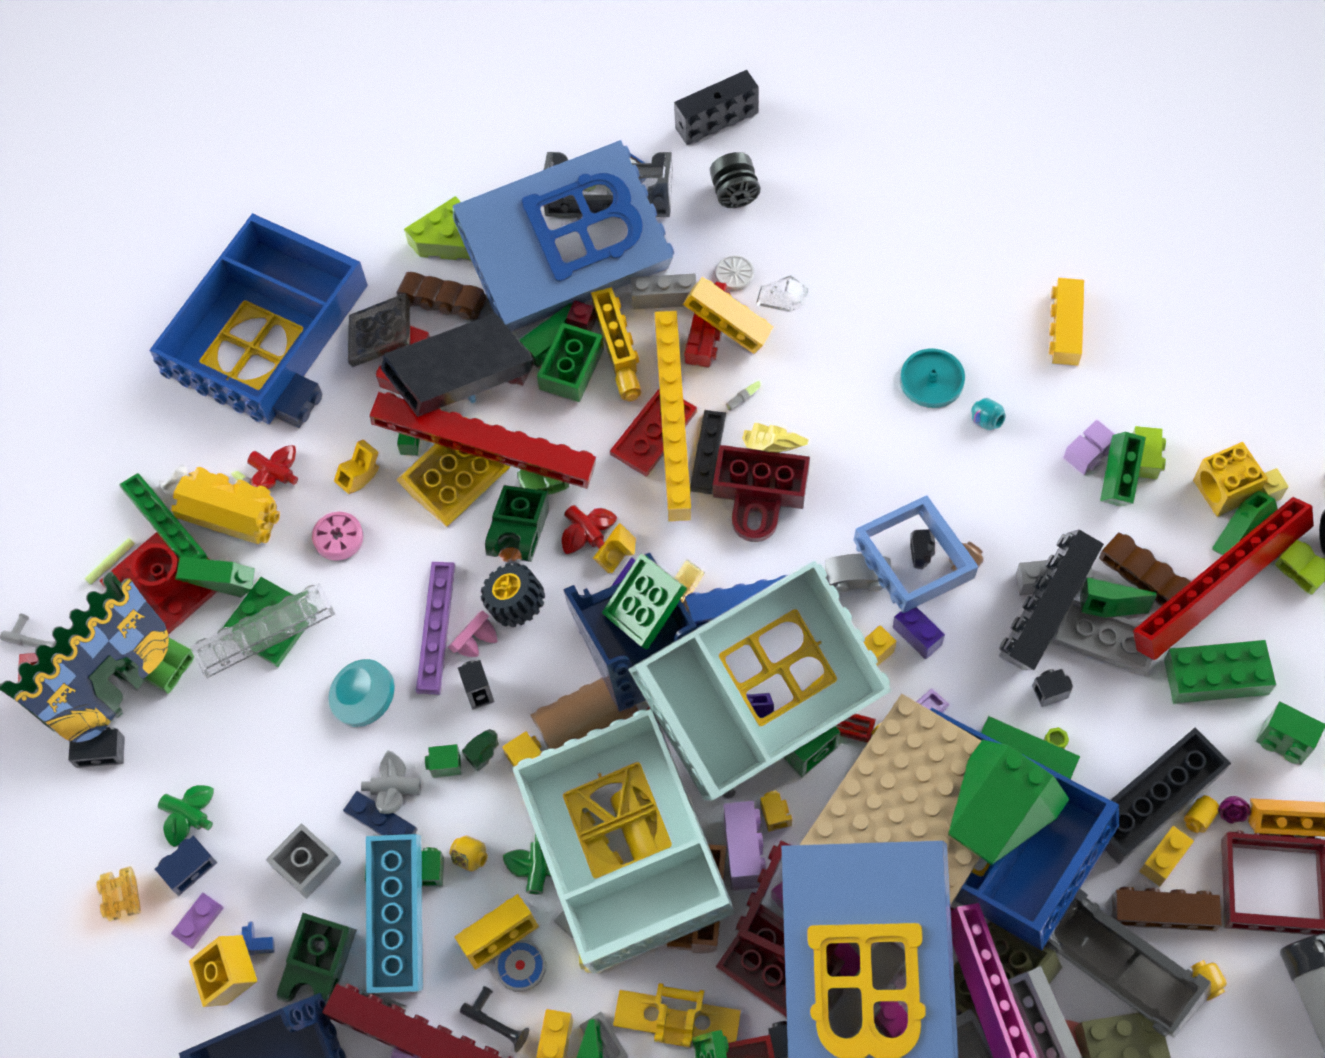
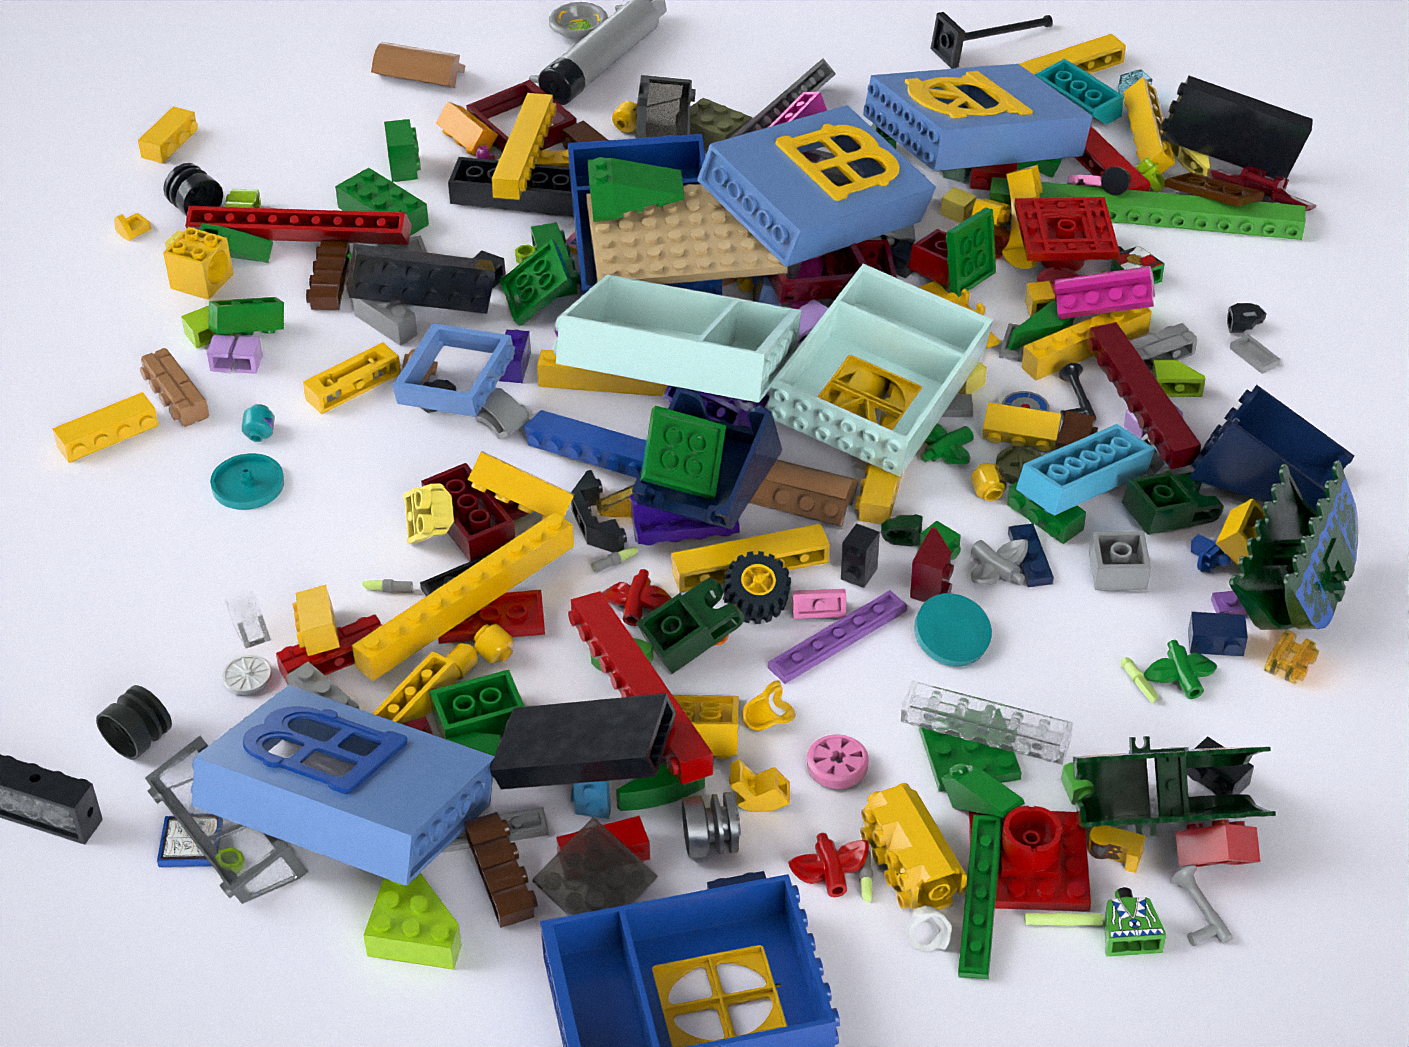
camera: 135 degrees left, 20 degrees down
(62, 586) = (1132, 926): none -> bright green torso
(153, 950) = (1309, 549): none -> dark green animal
(206, 779) = (1139, 679): none -> yellowish green piece
(351, 414) = (710, 824): none -> flat silver wheel
(413, 516) = (758, 713): none -> yellow piece
(413, 718) = (931, 568): none -> dark red slope
(449, 964) = (1075, 427): none -> reddish brown brick
(468, 901) = (1012, 461): none -> olive tile
(550, 629) = (794, 547): none -> yellow brick
(615, 548) = (627, 561): yellow slope -> none
(621, 410) = (493, 643): none -> yellow head
(640, 545) = (614, 559): none -> light grey piece
(704, 555) = (603, 535): none -> black slope
(737, 506) = (519, 486): none -> yellow brick
(992, 472) = (352, 377): none -> yellow brick
(993, 703) = (536, 282): none -> green plate
(1081, 386) = (174, 387): none -> medium nougat brick
(1198, 820) = (523, 146): none -> yellow brick

